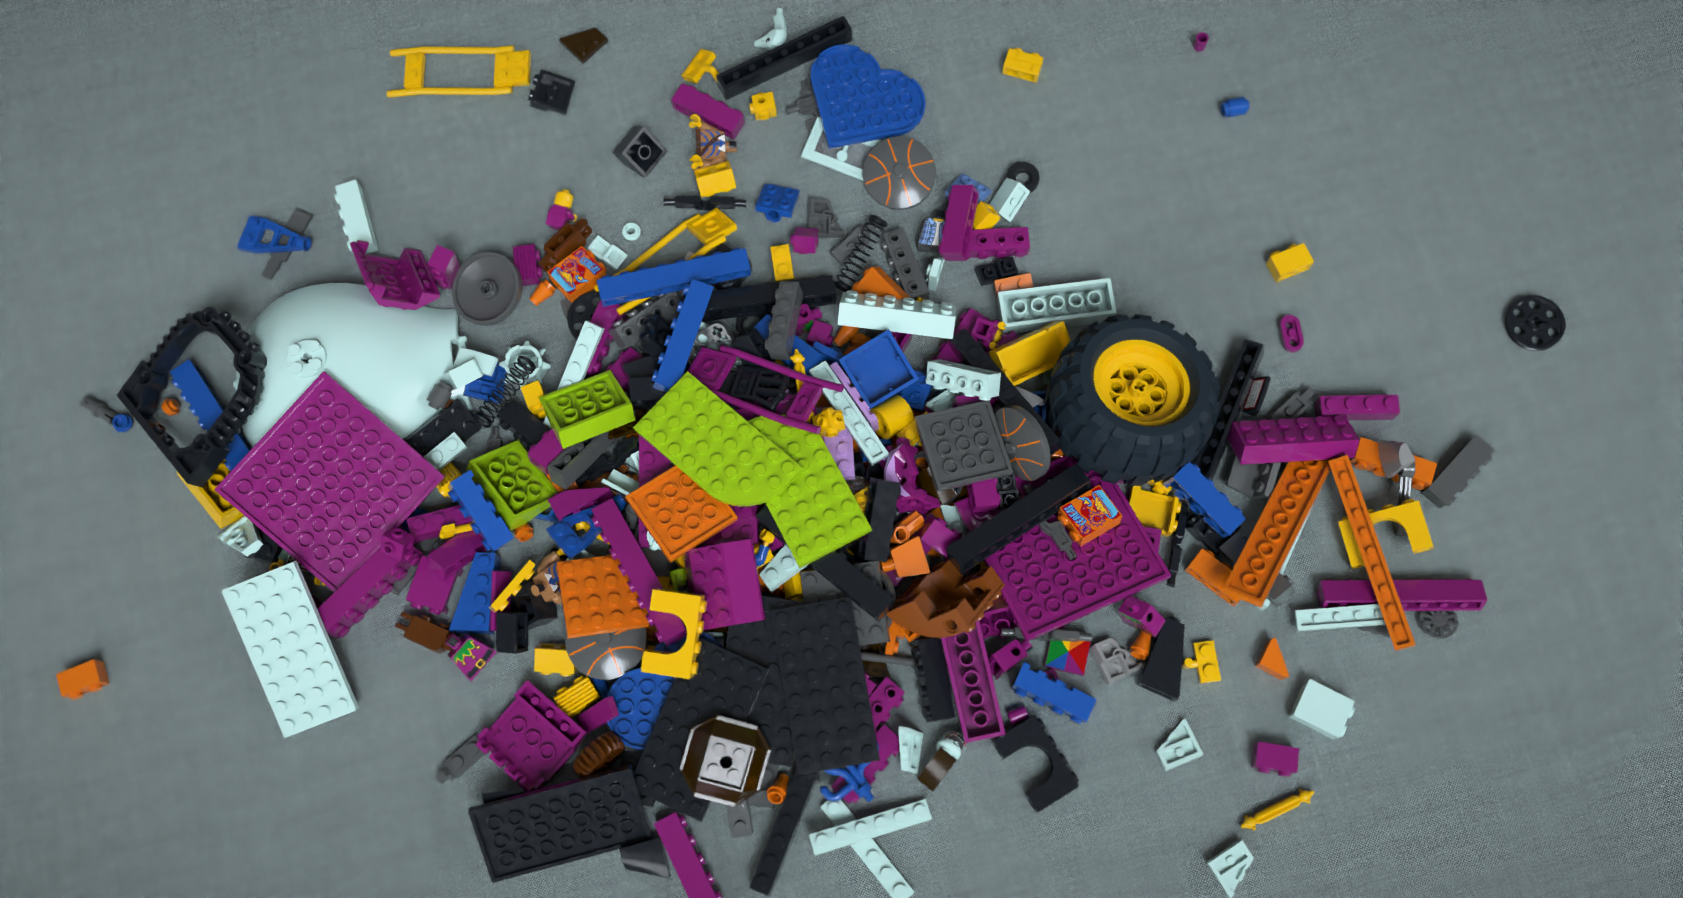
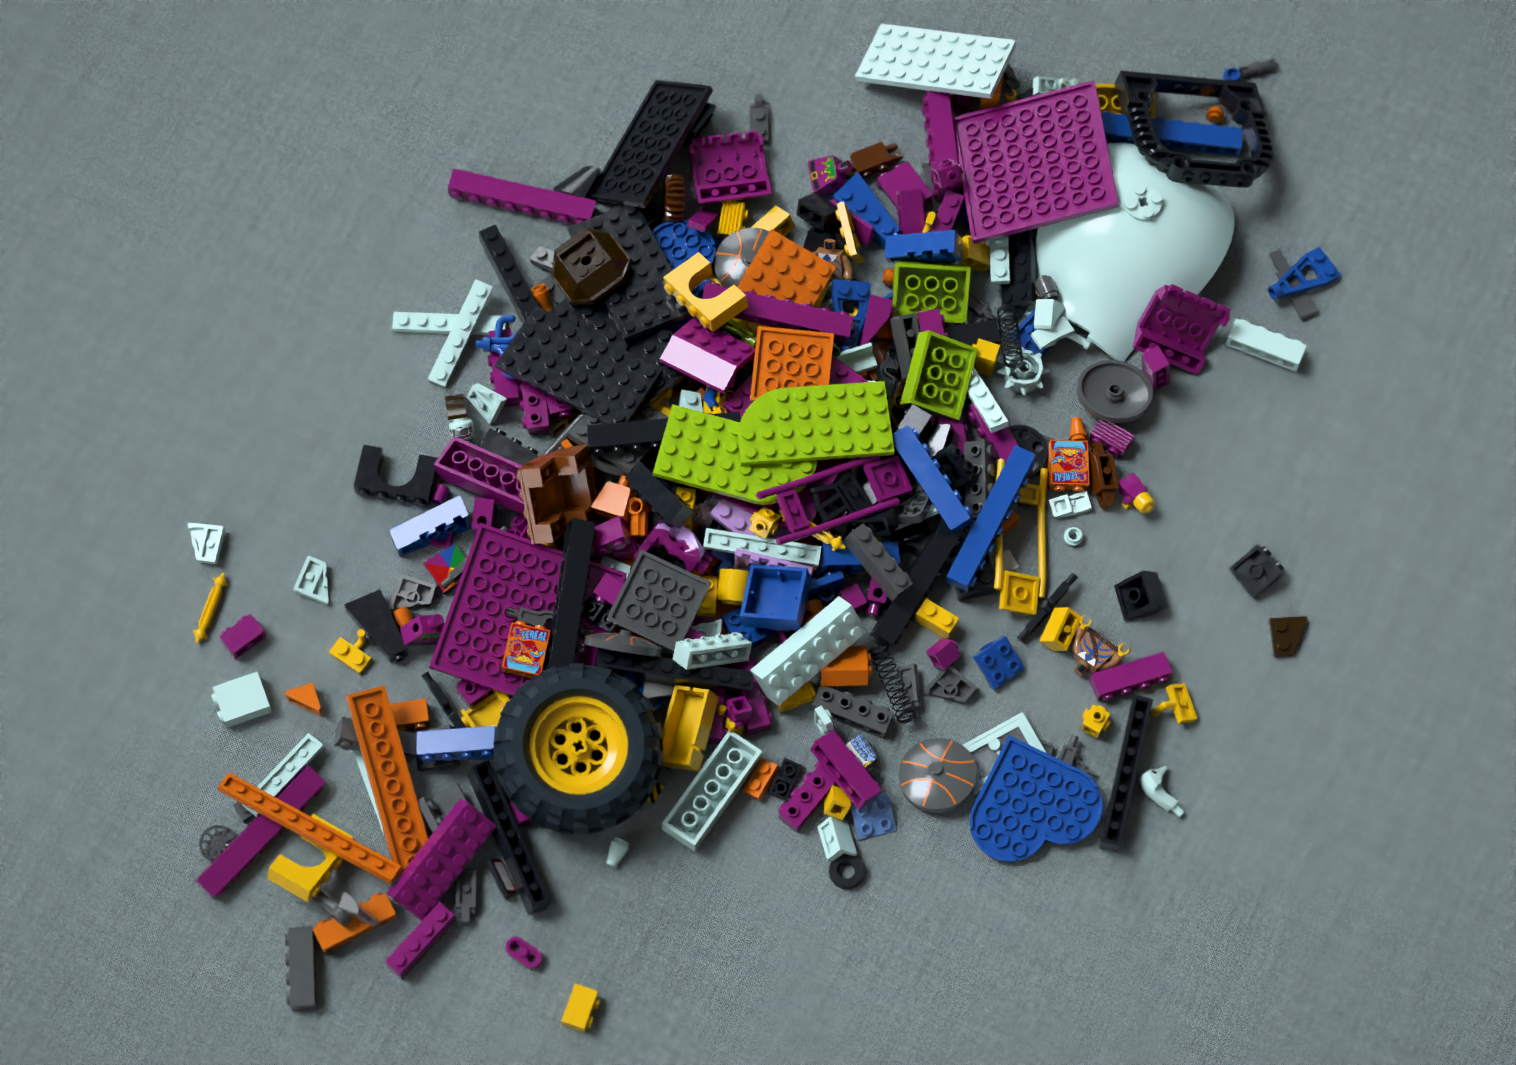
camera: 125 degrees right, 5 degrees down
(510, 70) = (1313, 560): yellow plate -> none
(1023, 65) = (948, 961): yellow brick -> none

